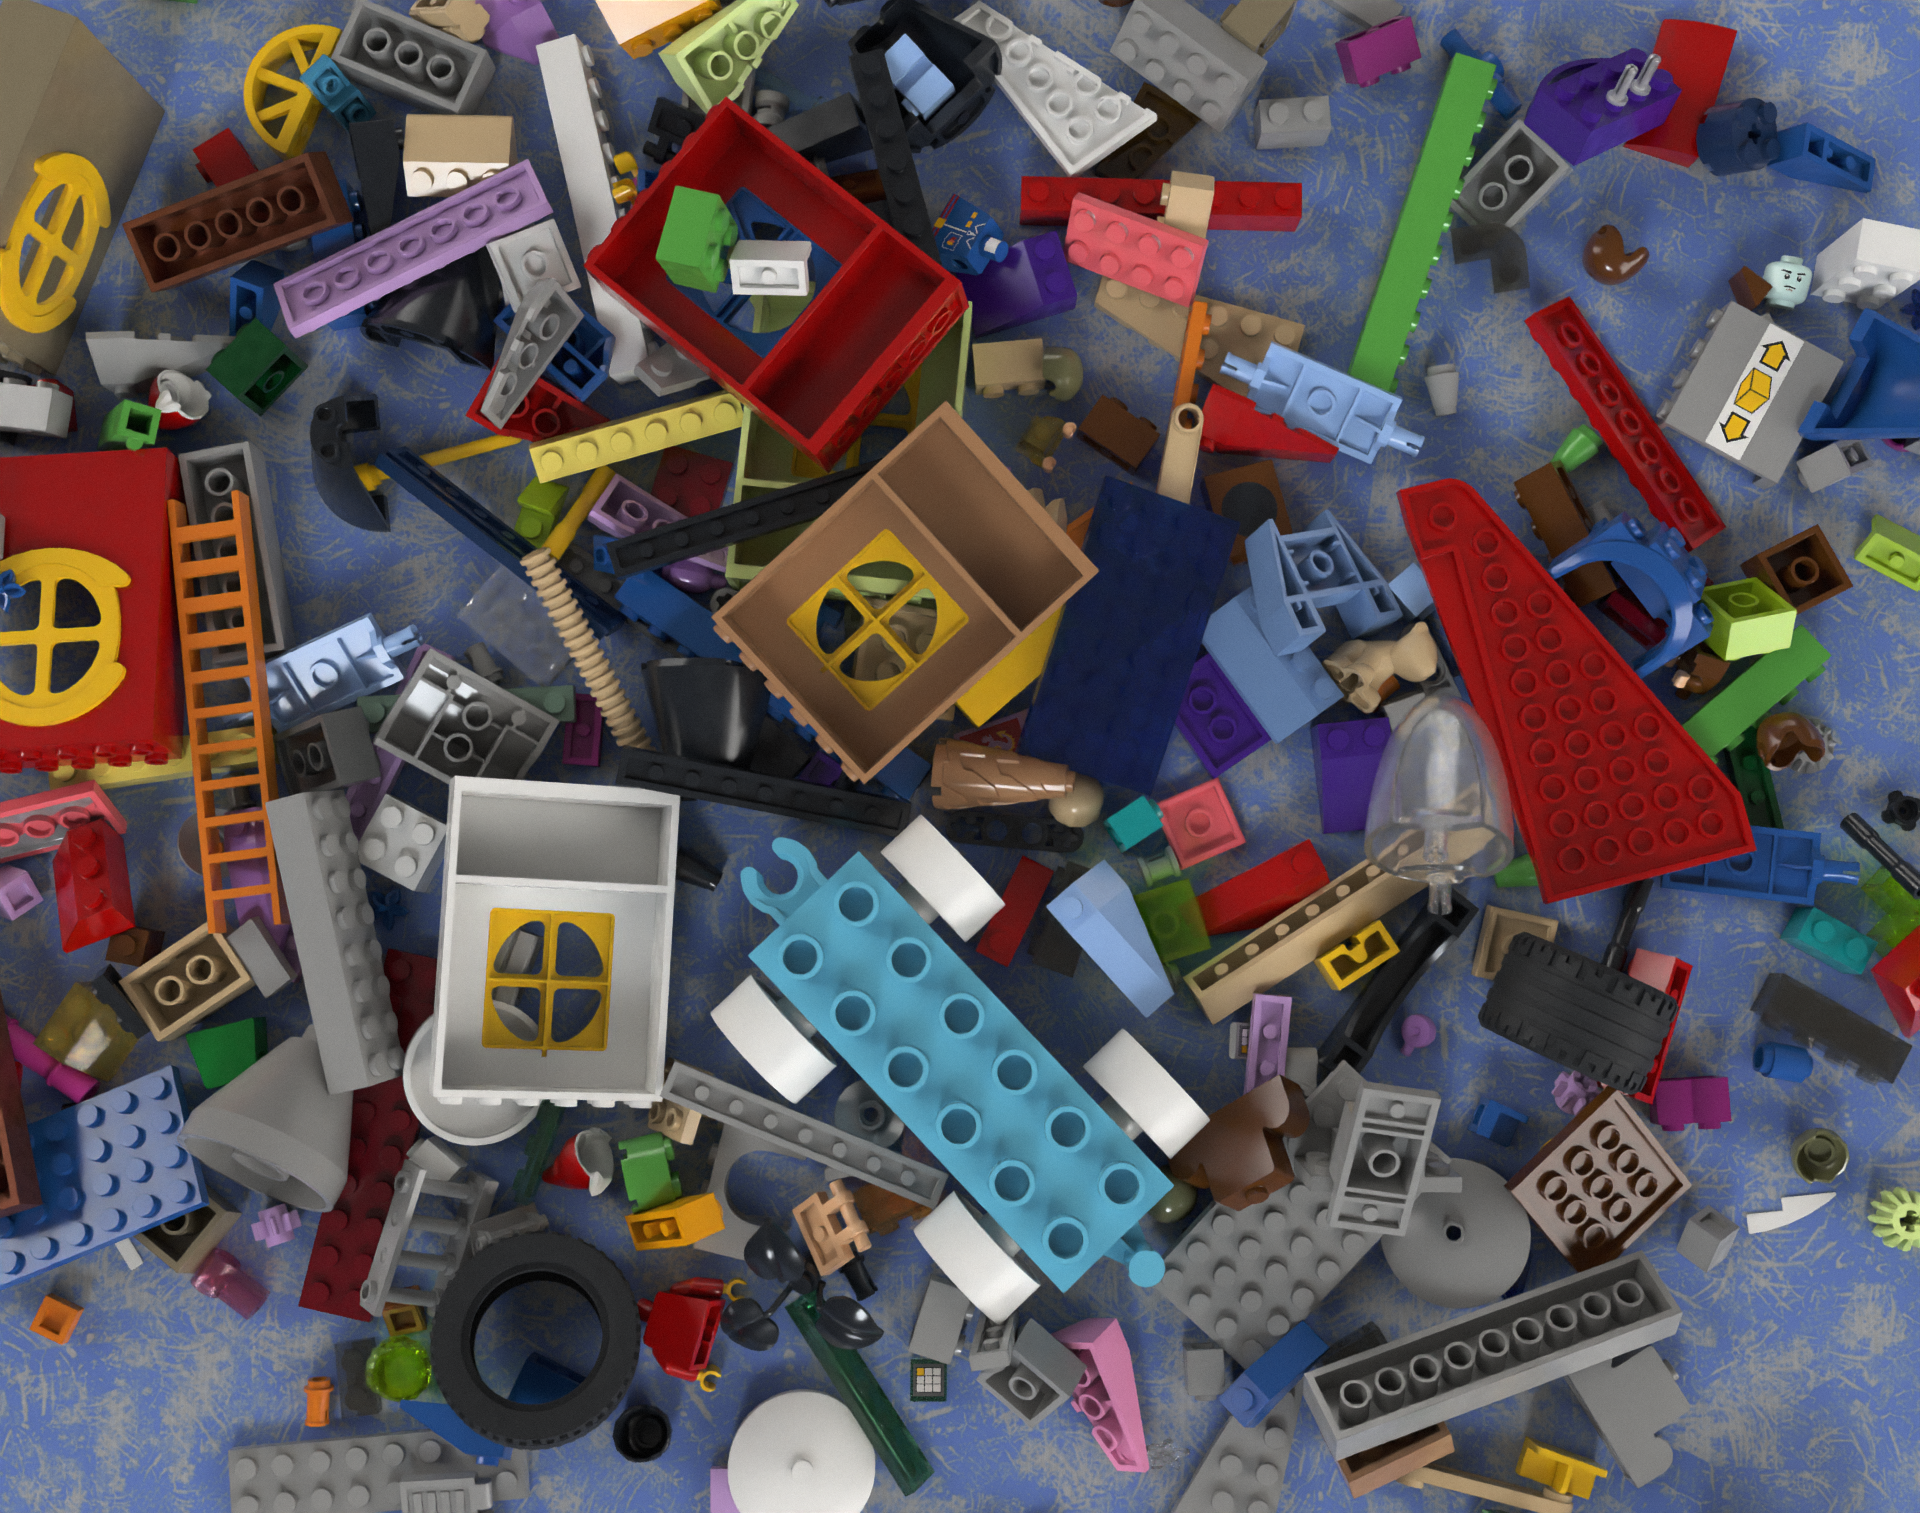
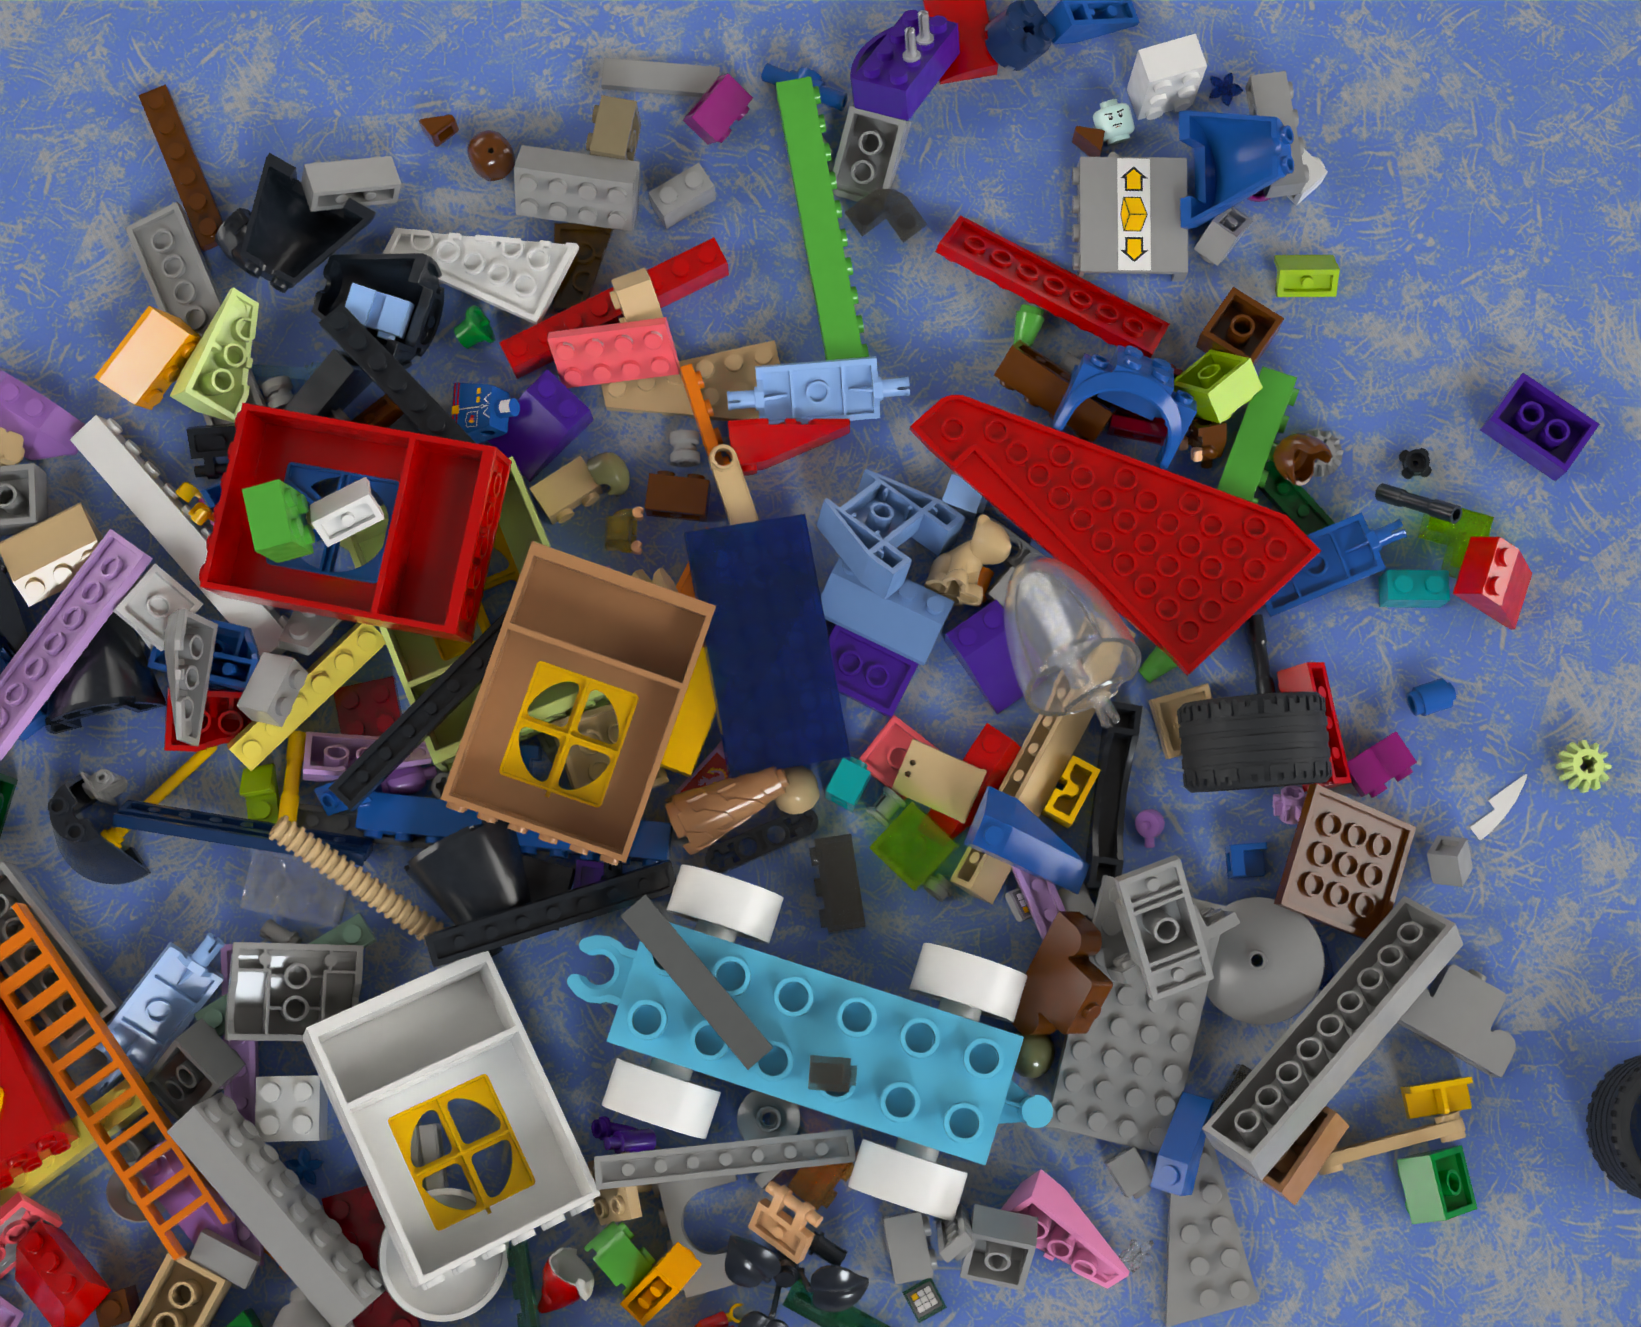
camera: 25 degrees left, 5 degrees down
(387, 419) = (104, 785): none -> light grey hinge
(585, 737) = (389, 948): magenta plate -> none
(604, 411) = (272, 689): none -> light grey brick
(696, 870) = (532, 1004): black cone -> none
(718, 1055) = (624, 1137): none -> dark purple plant
(871, 948) = (696, 982): none -> dark grey tile
(957, 1117) = (831, 1073): none -> clear smoke brick
(1004, 148) = (474, 328): none -> green piece
(1021, 901) = (796, 905): red slope -> none
(1108, 926) = (873, 872): light blue wedge -> none
(1152, 388) = (685, 449): none -> light grey wheel
(1227, 870) = (938, 780): none -> tan container
(1247, 496) = (802, 491): brick -> none
(1278, 975) = (1019, 838): none -> blue wedge
(1443, 388) = (903, 332): light grey cone -> none
(1606, 260) = (971, 174): reddish brown helmet -> none
(1819, 1155) = (1496, 752): olive hair -> none
(1830, 1028) = (1452, 654): clear smoke brick -> none

